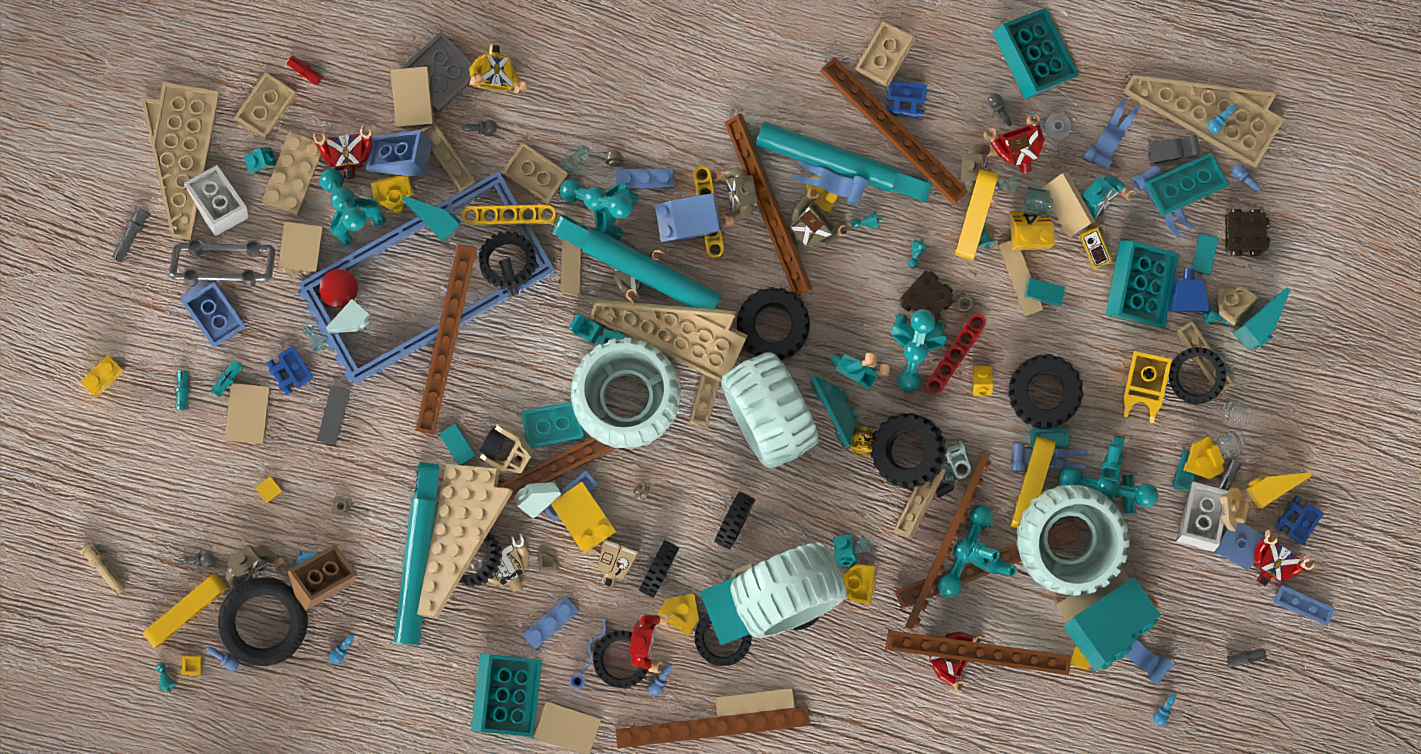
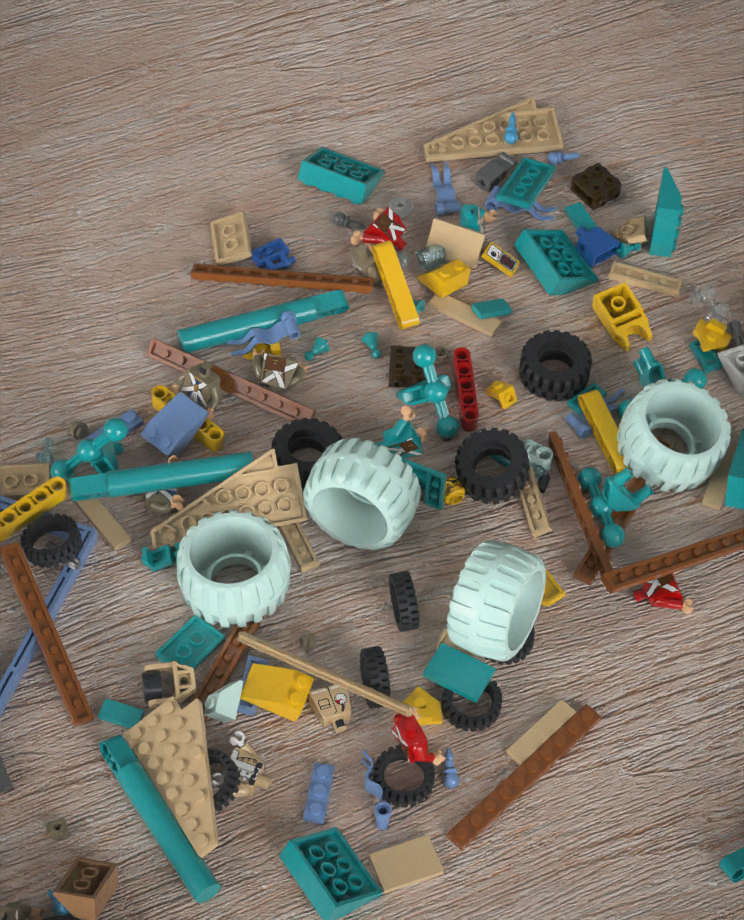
camera: 45 degrees left, 30 degrees down
(547, 562) = (275, 750): dark tan tile -> none
(619, 539) = (326, 674): none -> tan axle
(1197, 352) = (666, 273): black tyre -> none

